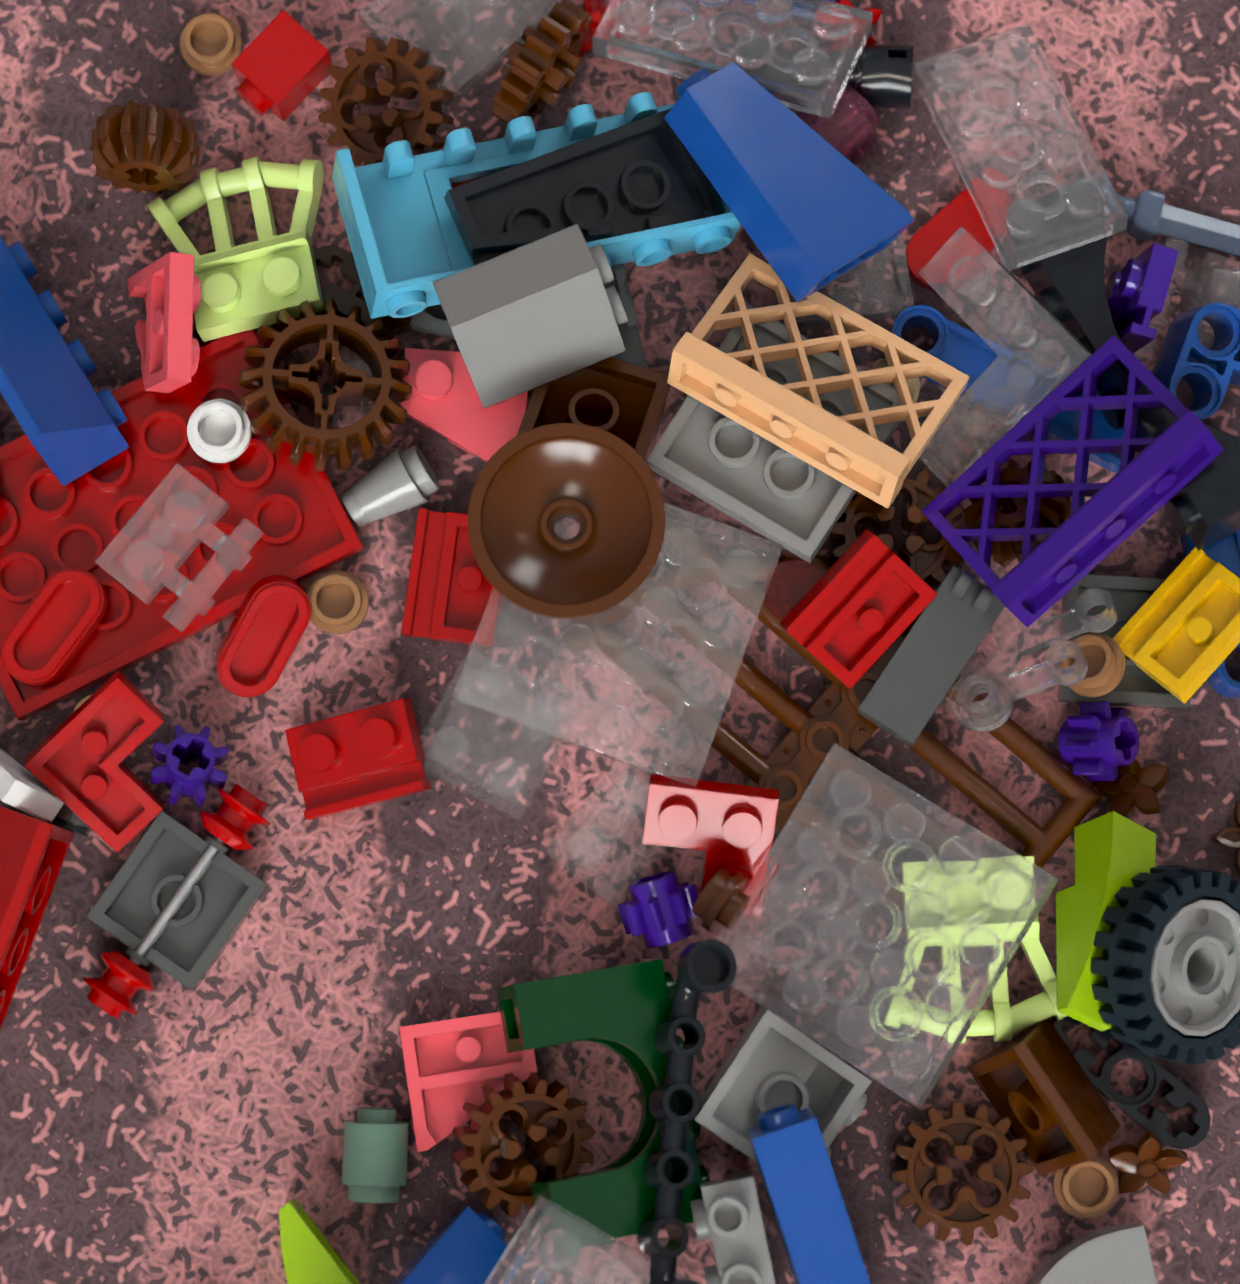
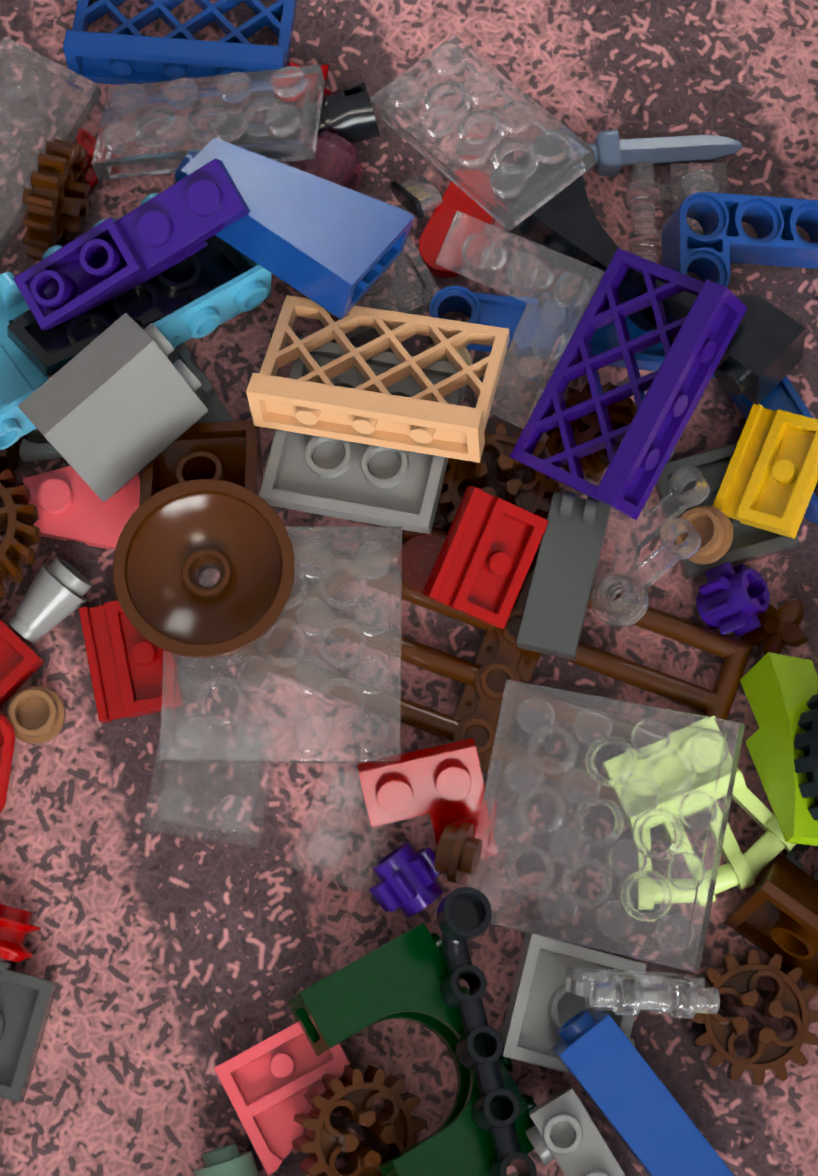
camera: 10 degrees left, 5 degrees down
(358, 759) = (98, 843): red plate -> none
(608, 152) = (133, 248): none -> dark purple slope
(848, 1102) = (637, 990): none -> clear plate
(926, 189) = (417, 195): none -> clear piece
(1140, 294) = (628, 208): dark purple plate -> none

